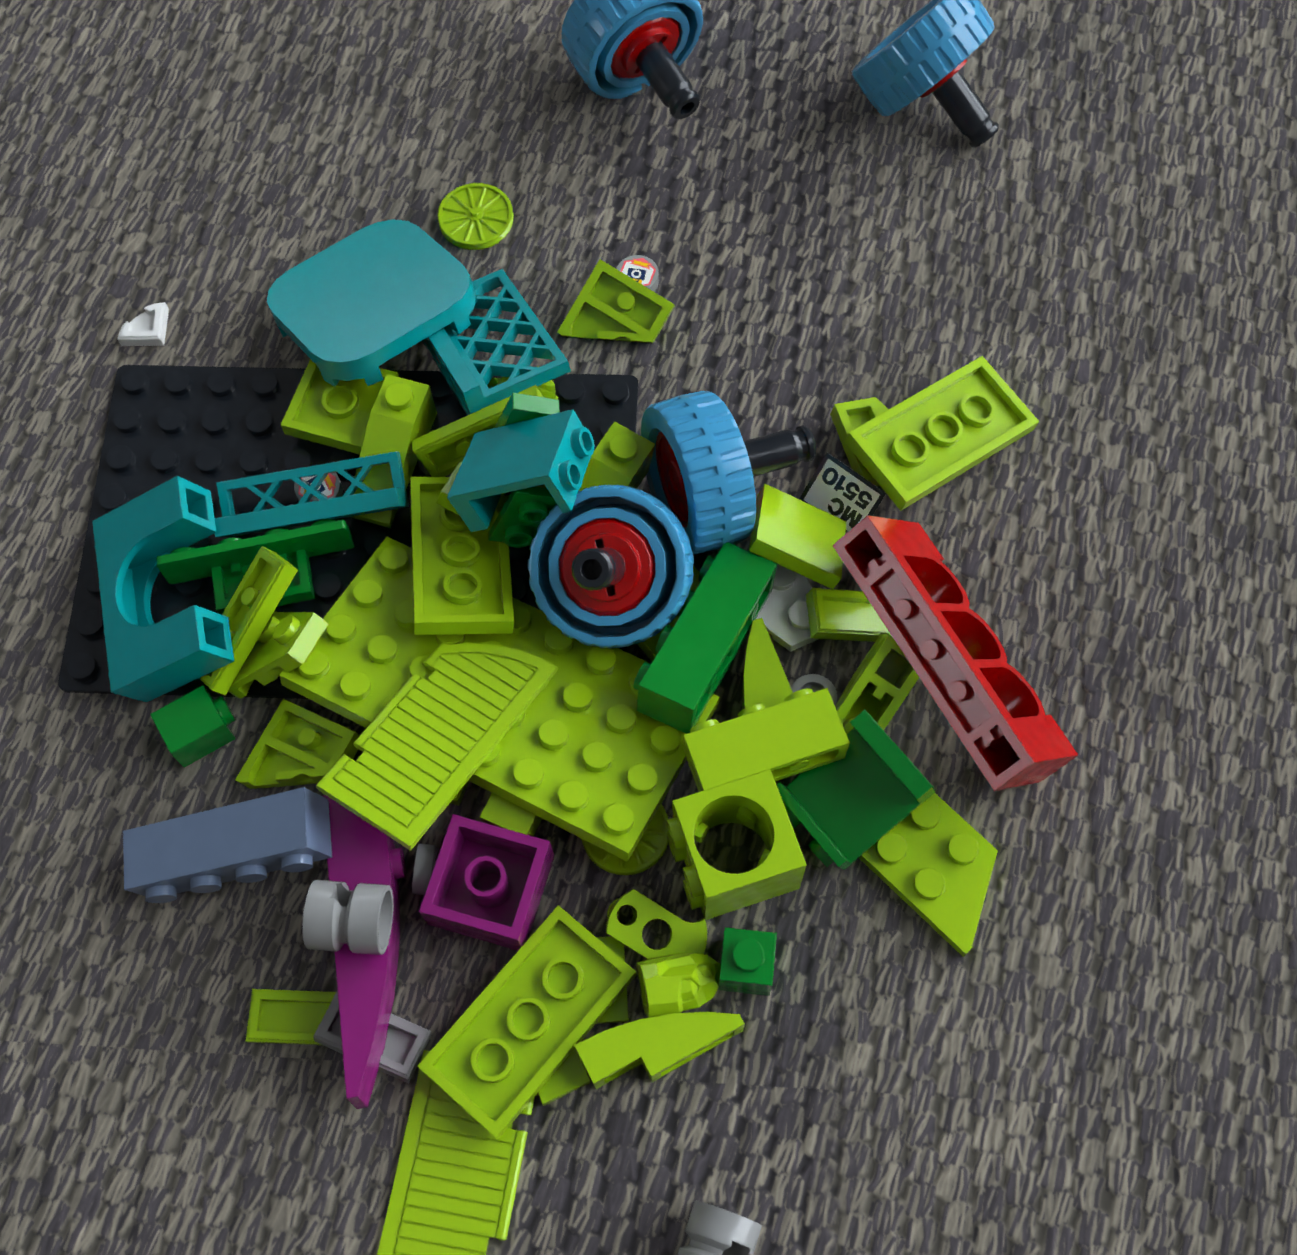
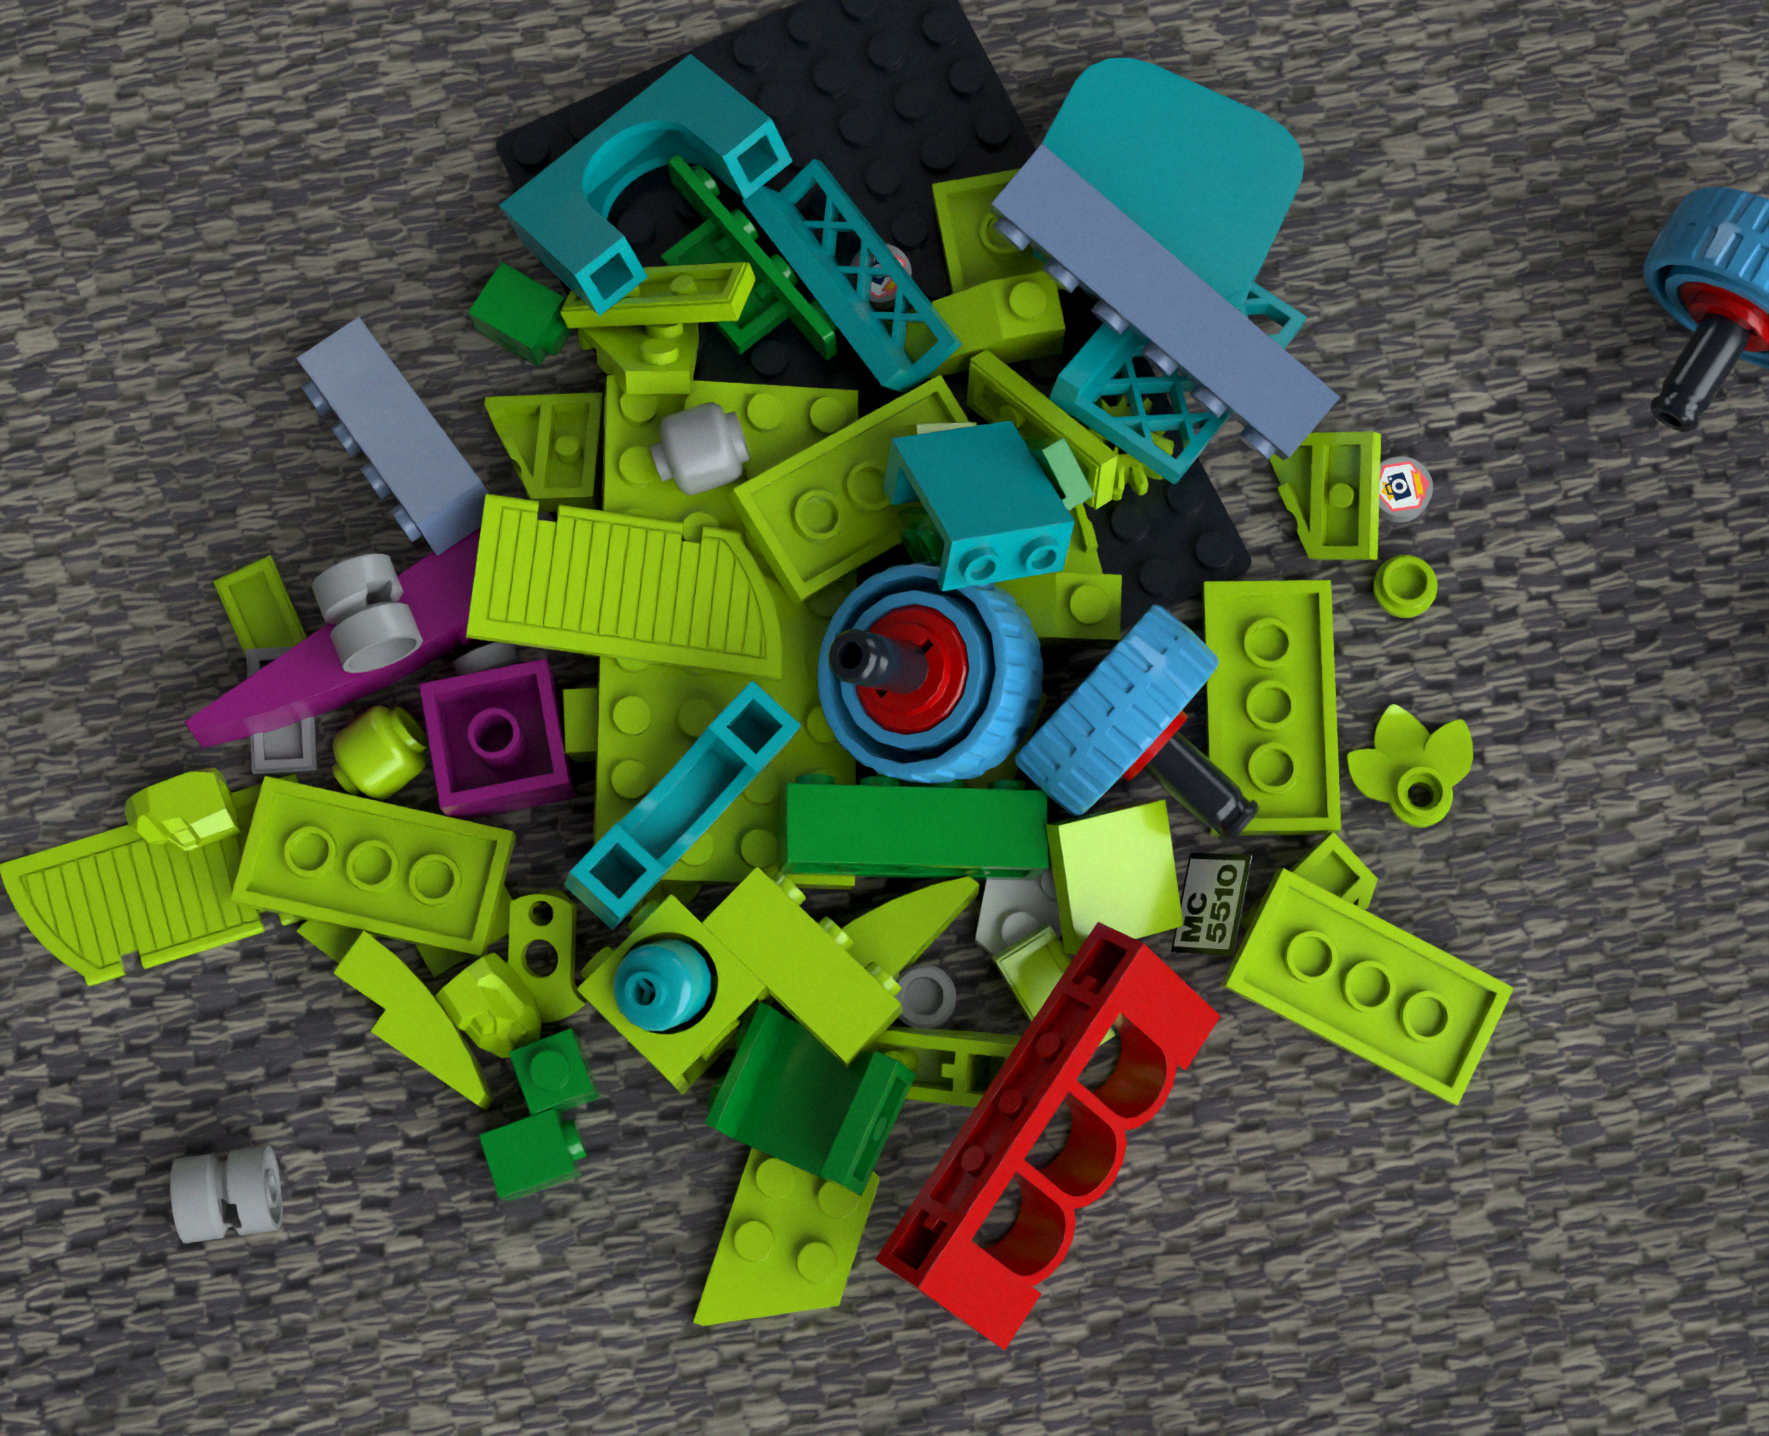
camera: 65 degrees right, 10 degrees up
(372, 632) = (700, 448): none -> light grey head
(408, 1142) = (185, 810): none -> lime rock
(446, 976) = (379, 752): none -> lime head
(452, 313) = (1163, 304): none -> sand blue brick
(475, 216) = (1378, 238): lime wheel -> none
(631, 799) = (682, 805): none -> teal arch
(699, 300) = (1405, 586): none -> lime plate
(730, 819) = (662, 985): none -> teal head
(754, 397) = (1274, 701): none -> lime plate
(796, 1006) = (533, 1154): none -> green brick
(808, 348) = (1410, 757): none -> lime plate

